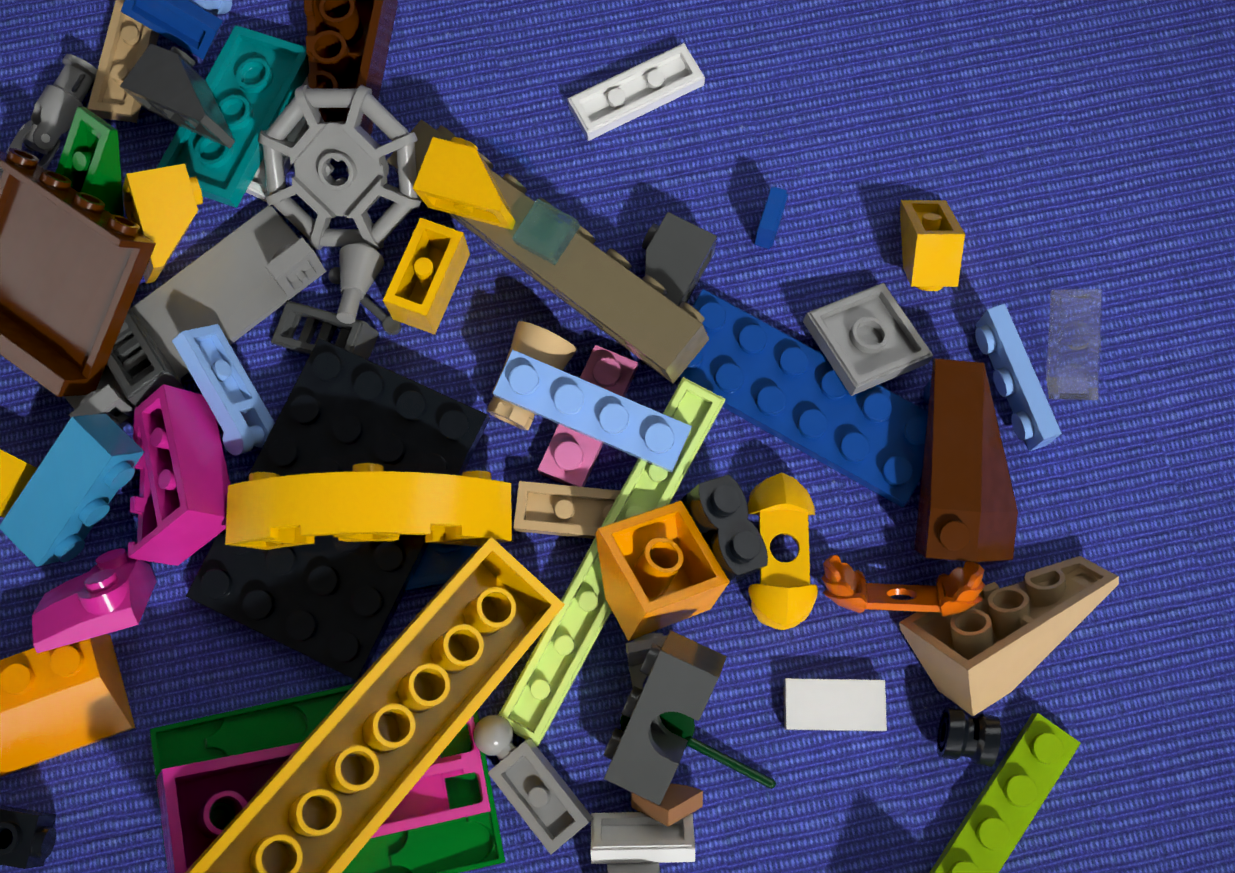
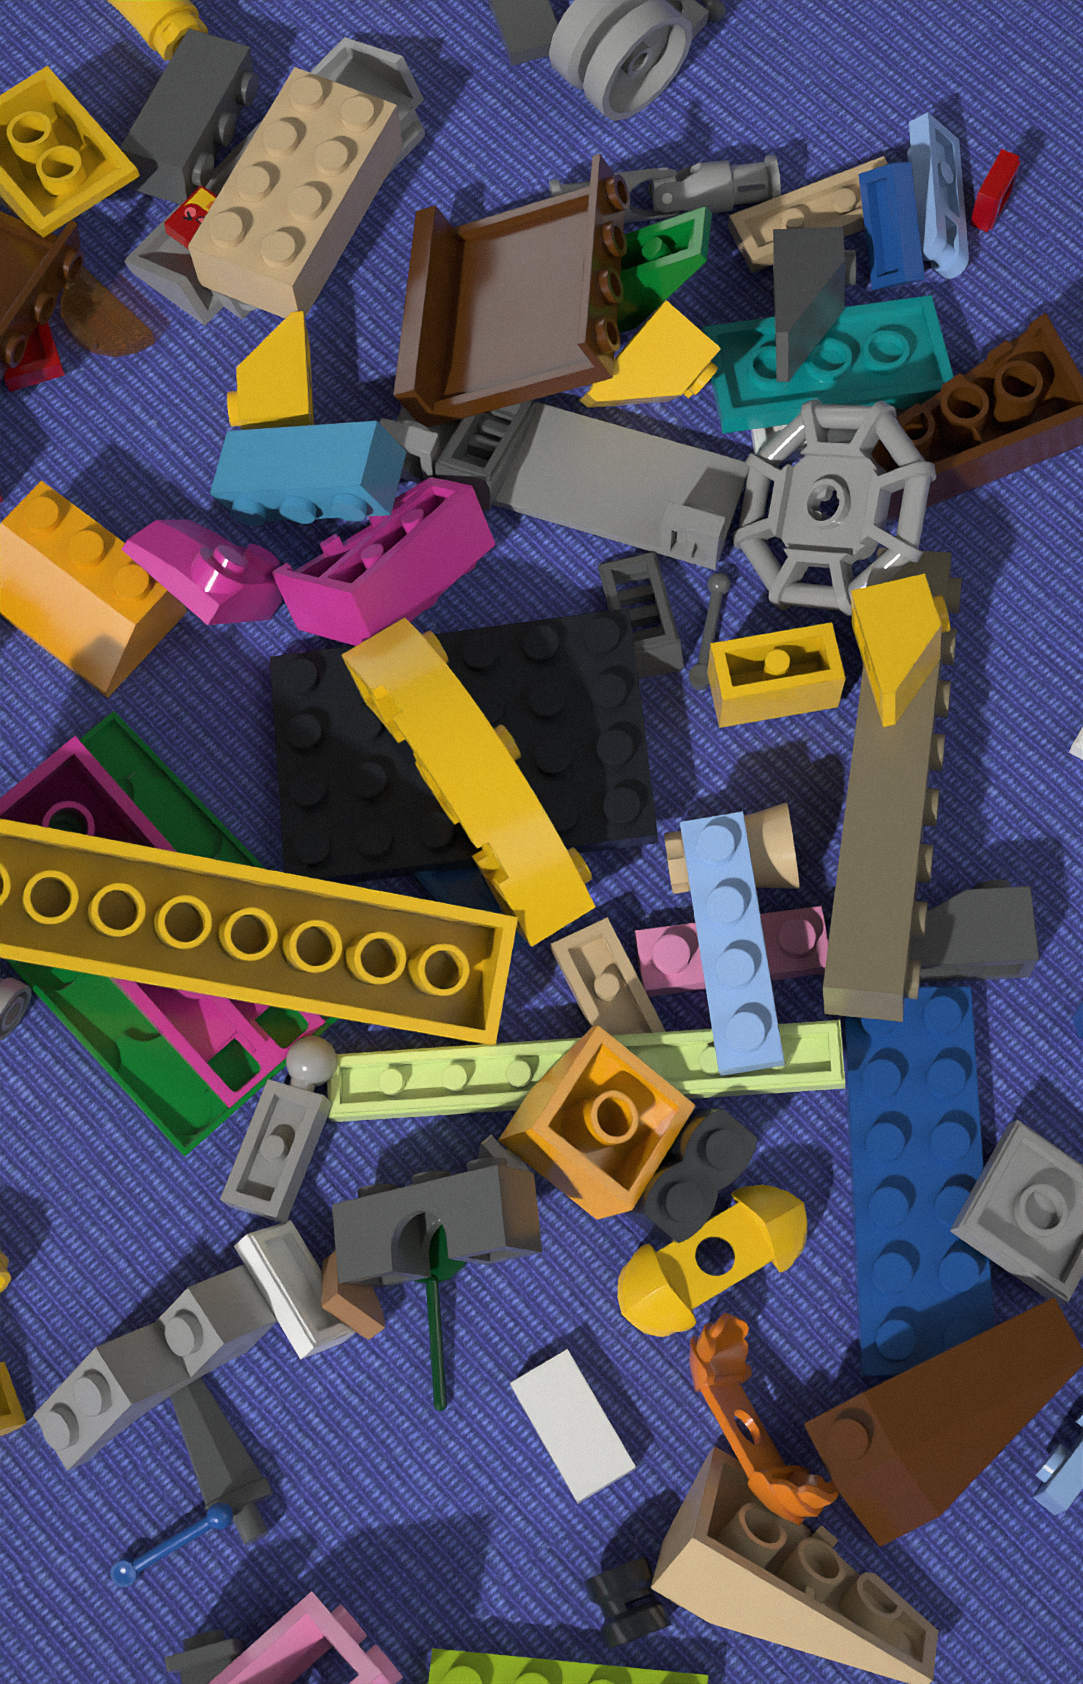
camera: 60 degrees right, 5 degrees down
(225, 388) = (513, 550): light blue plate -> none
(358, 270) = (737, 600): light grey cone -> none
(546, 231) = (902, 762): clear light blue tile -> none

